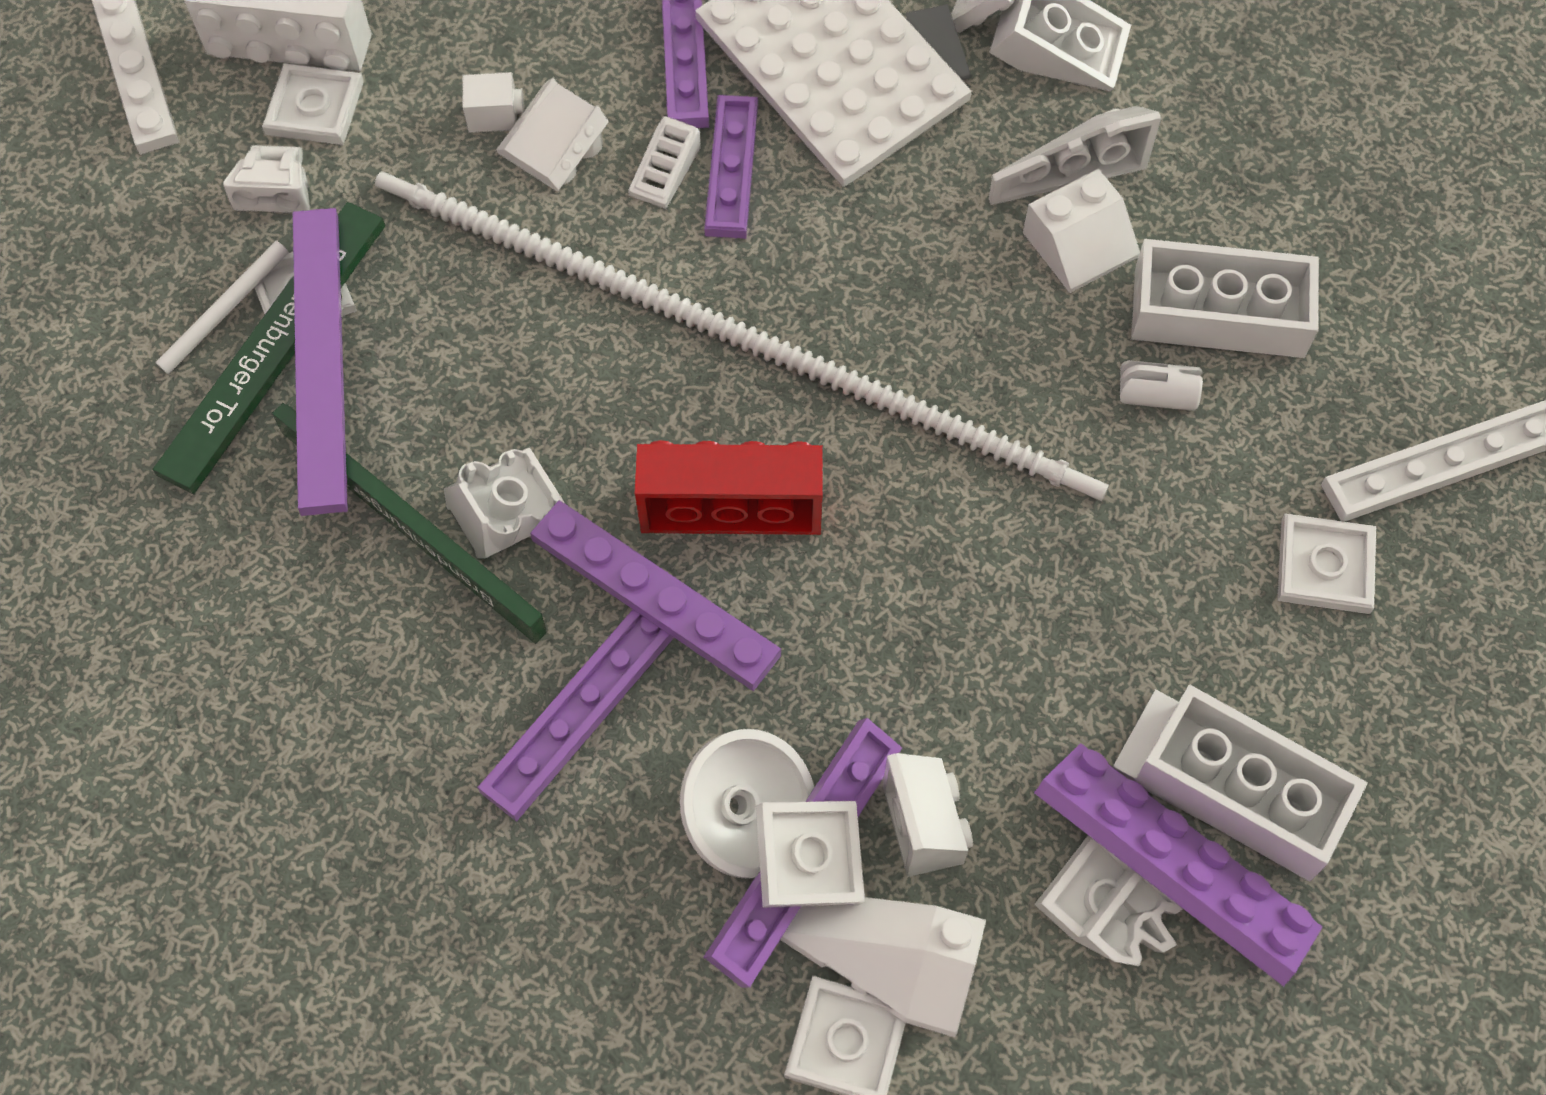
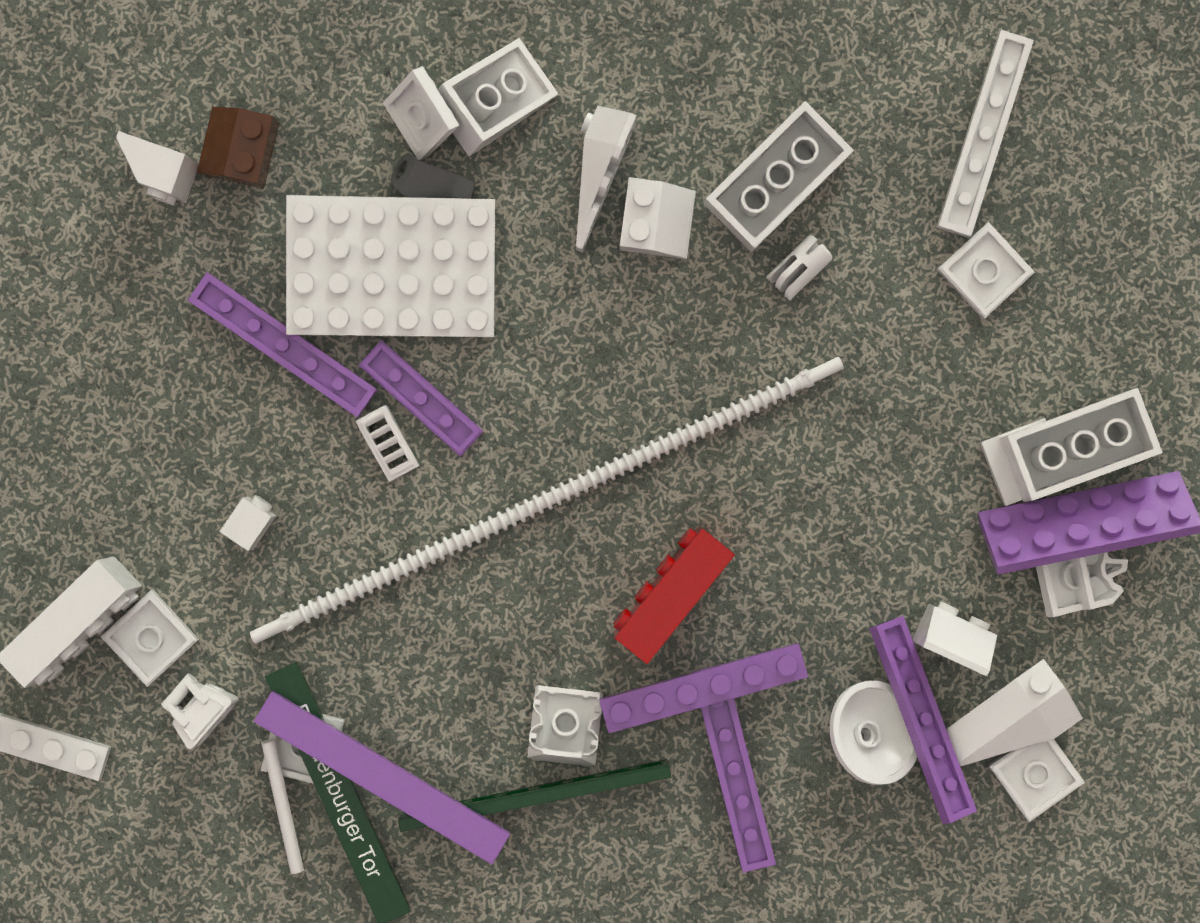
camera: 55 degrees left, 25 degrees up
(554, 135) = (307, 500): white slope -> none
(809, 853) = (936, 726): white plate -> none

